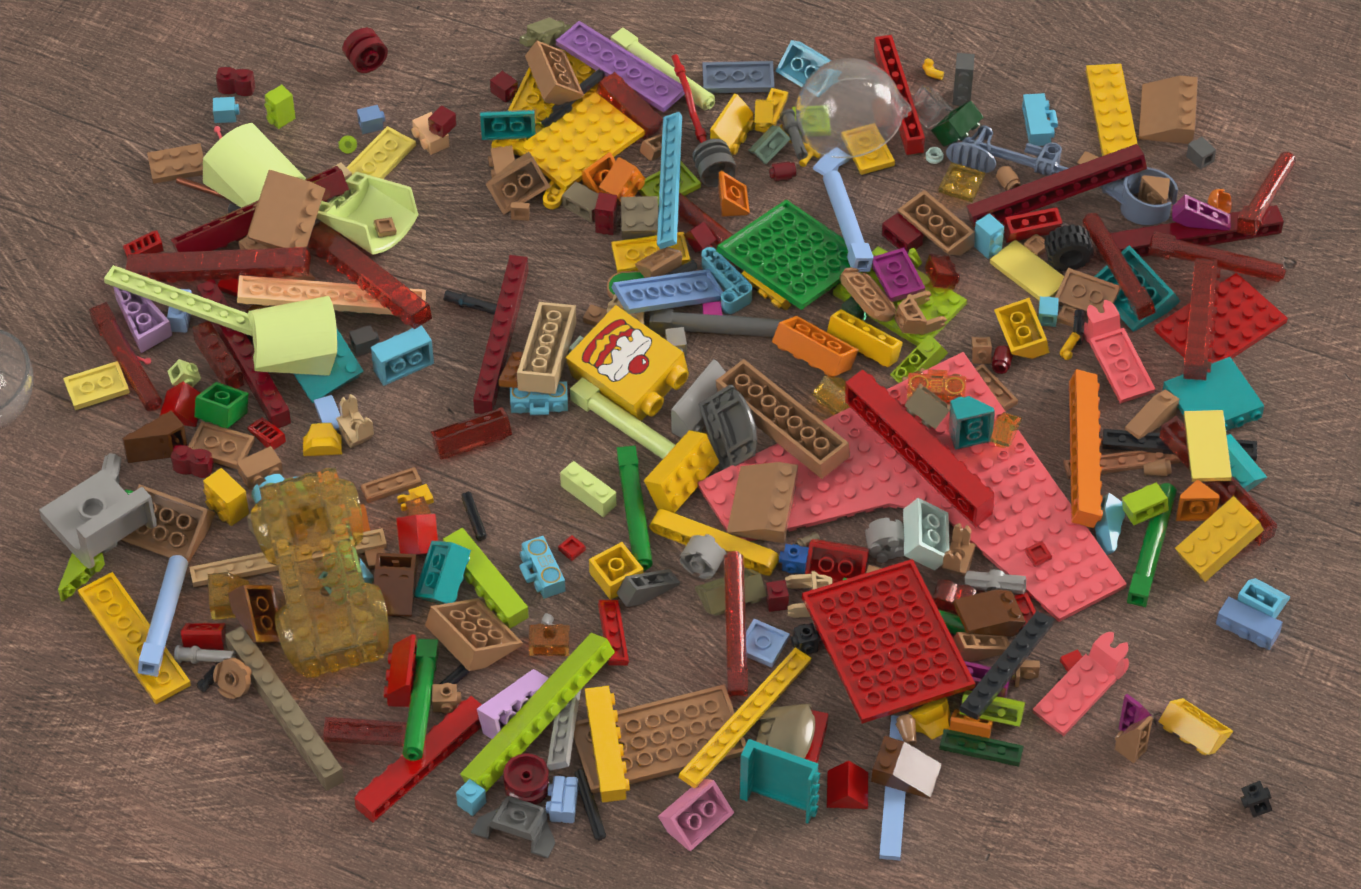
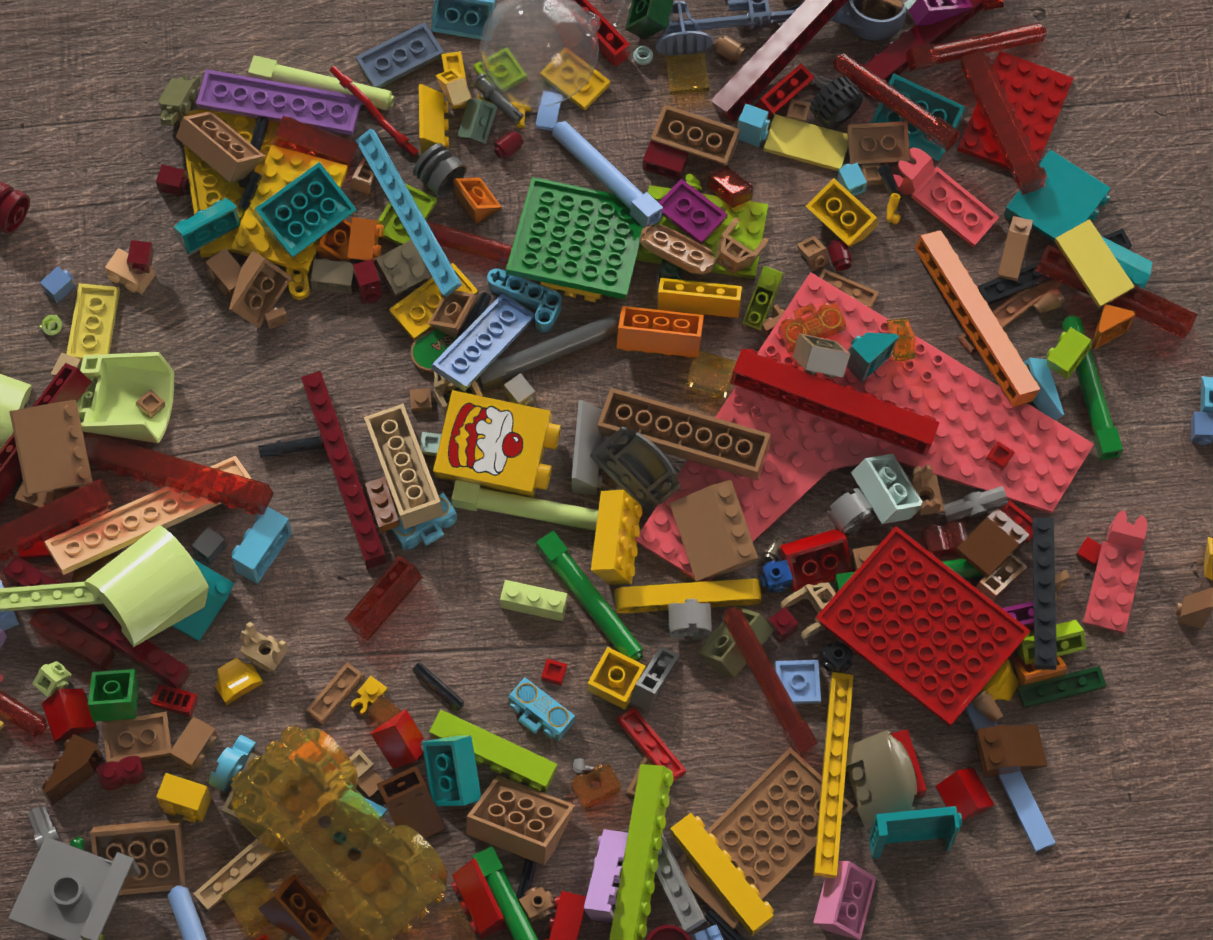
camera: 30 degrees left, 15 degrees up
(327, 410) = (222, 644): light blue slope -> none
(586, 139) = (304, 210): none -> teal slope
(699, 237) = (474, 261): dark red brick -> none
(712, 308) = (531, 336): dark pink tile -> none
(1131, 712) = (1183, 584): magenta slope -> none
(1219, 539) = (1154, 355): yellow brick -> none

